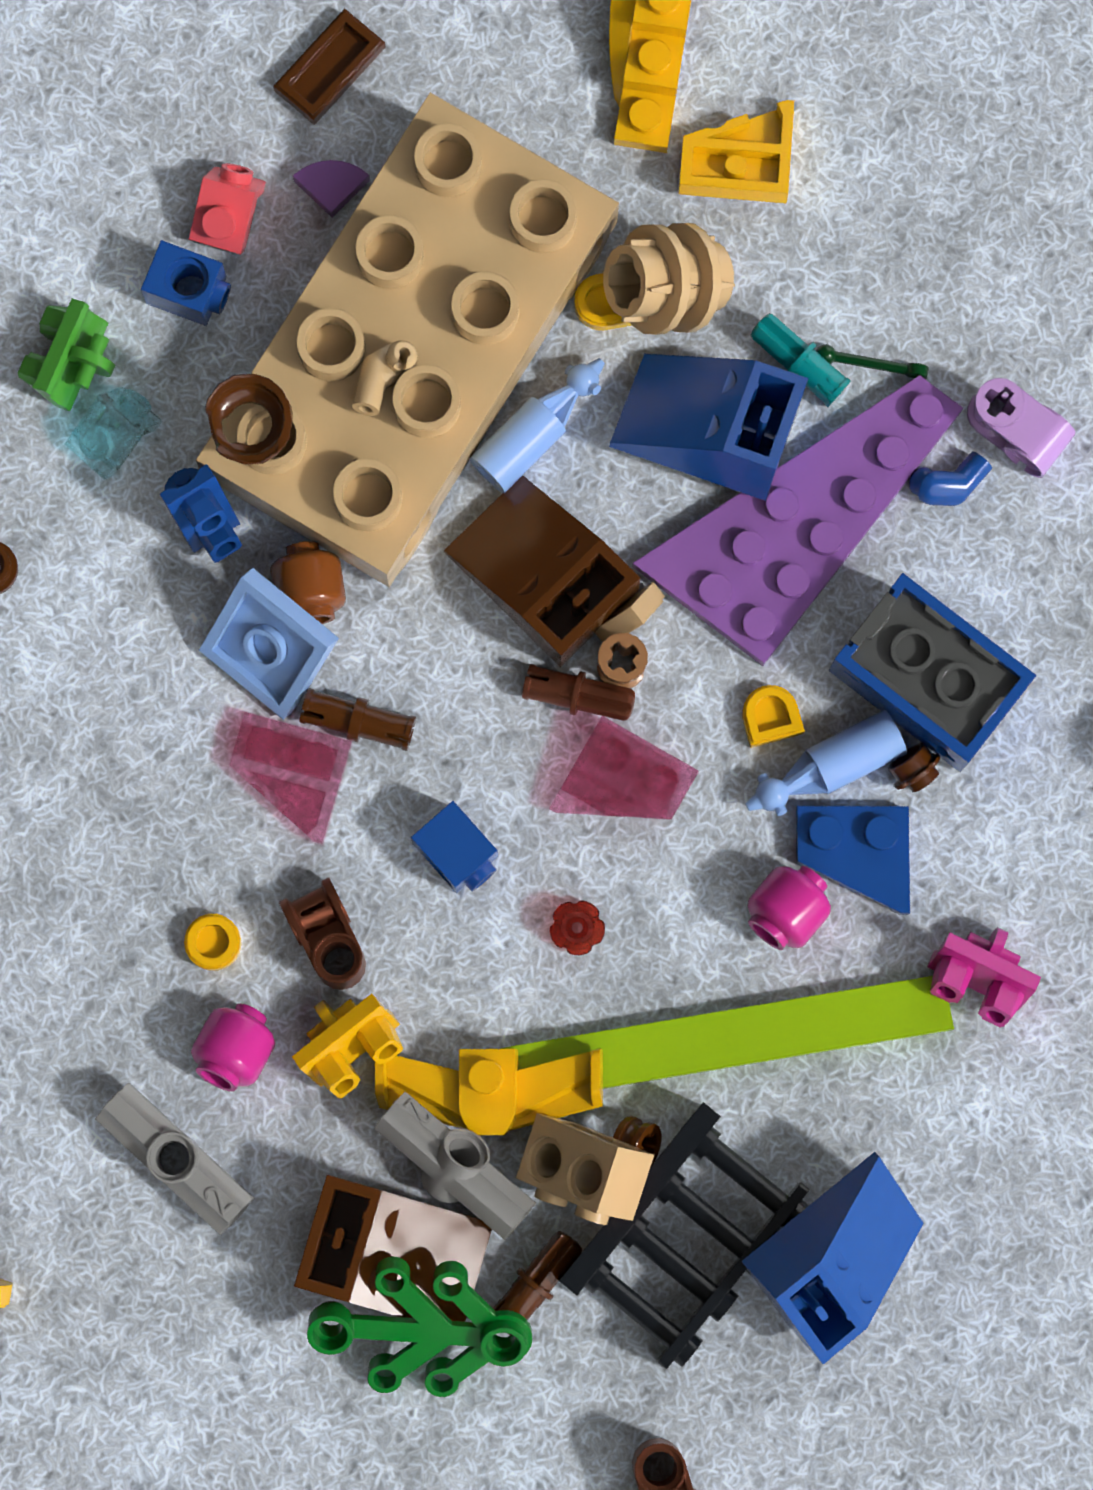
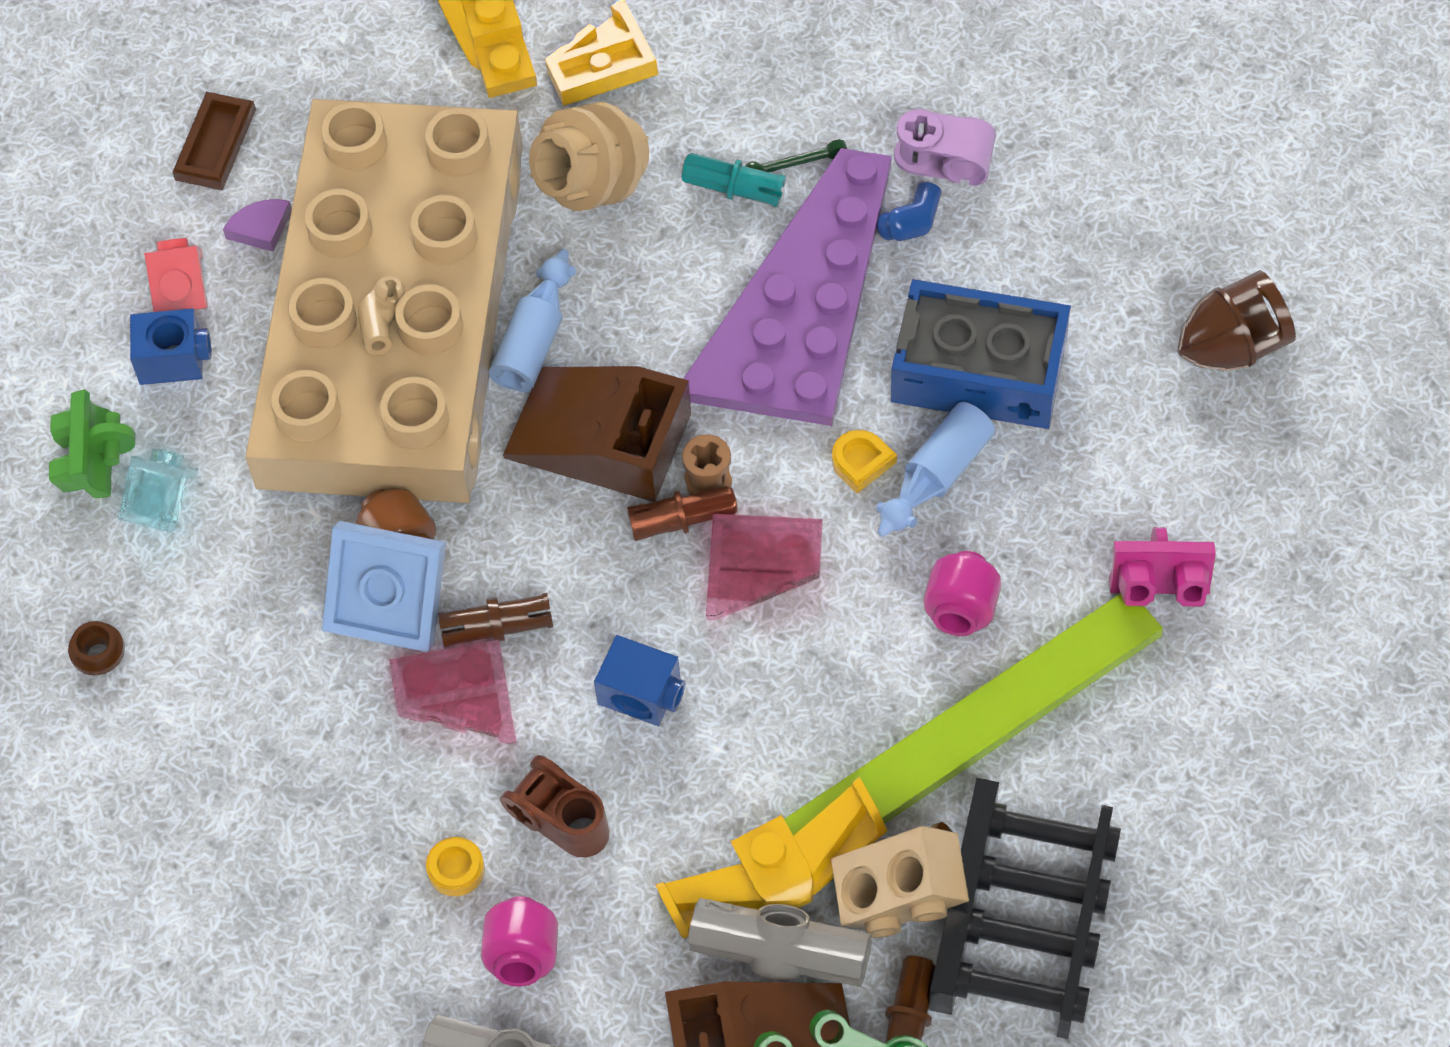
camera: 20 degrees left, 20 degrees down
(202, 512) = (271, 509): blue hips -> none
(243, 390) = (276, 365): reddish brown piece -> none
(343, 1038) = (620, 882): yellow hips -> none
(587, 916) = (783, 686): clear red plate -> none
(593, 306) = (541, 214): yellow tile -> none
(632, 613) = (697, 425): tan tile -> none
(711, 418) = (685, 246): blue slope -> none
(838, 1258) = (1169, 856): blue slope -> none
(858, 849) = (1000, 524): blue wing -> none
(915, 768) = (1008, 440): reddish brown plate -> none

